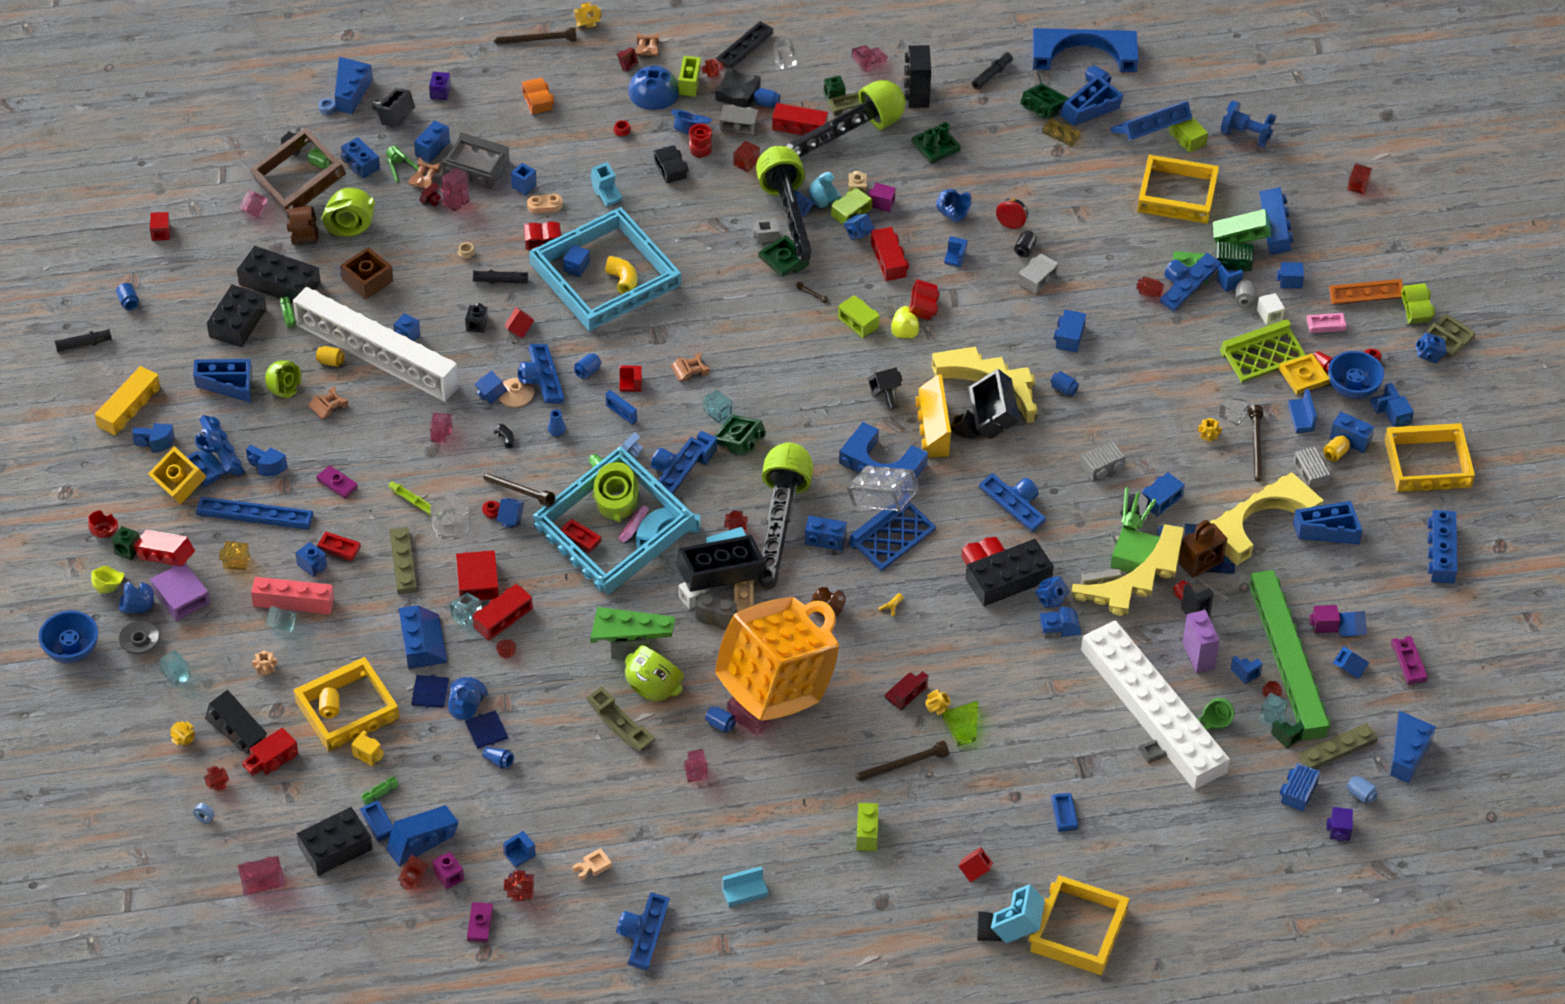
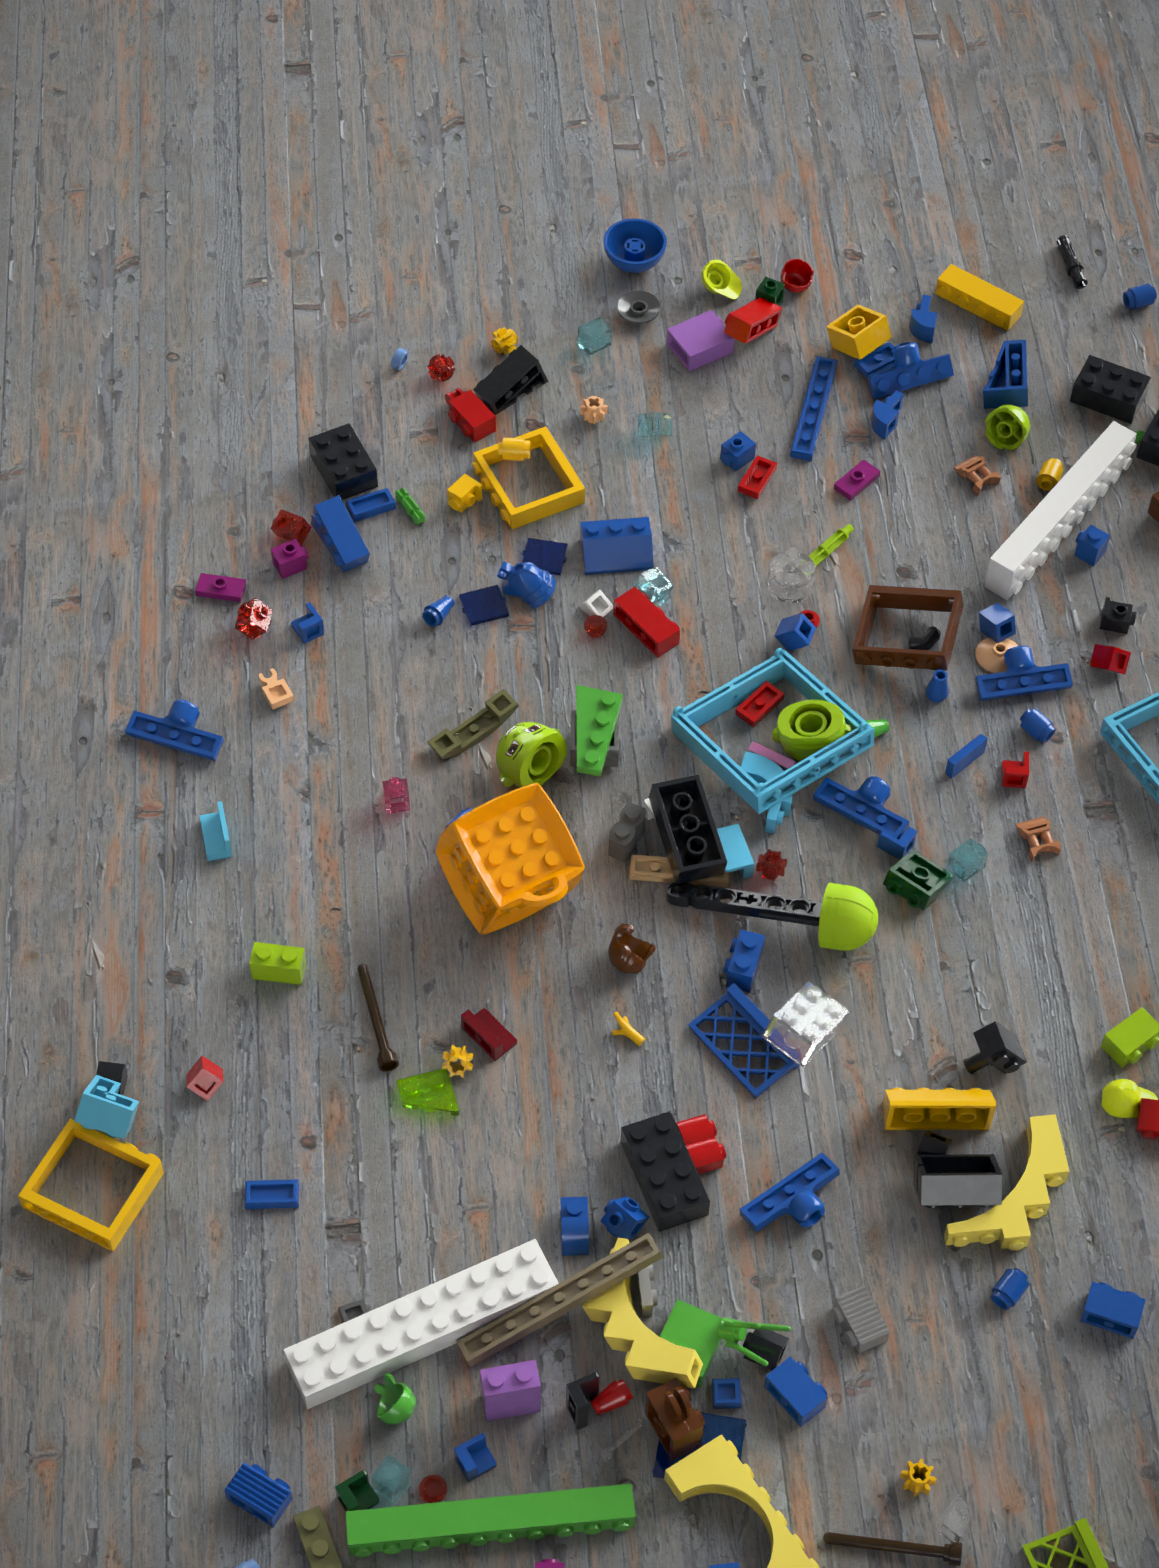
camera: 95 degrees right, 5 degrees up
(136, 600) = (684, 303): blue hair -> none
(234, 555) = (748, 386): clear yellow brick -> none
(261, 875) = (309, 401): clear pink brick -> none
(292, 595) = (684, 433): coral brick -> none
(403, 560) = (735, 536): olive plate -> none
(440, 427) = (933, 572): clear pink brick -> none
(477, 574) = (703, 600): red brick -> none
(481, 651) = (597, 604): none -> white slope
(506, 407) = (909, 599): none -> reddish brown window
(544, 497) = (802, 656): dark brown piece -> none
(632, 446) = (901, 762): light blue tile -> none
(856, 450) = (879, 1010): blue arch -> none
(1125, 615) = (559, 1299): none -> dark tan plate
(1340, 823) = (188, 1538): dark purple brick -> none

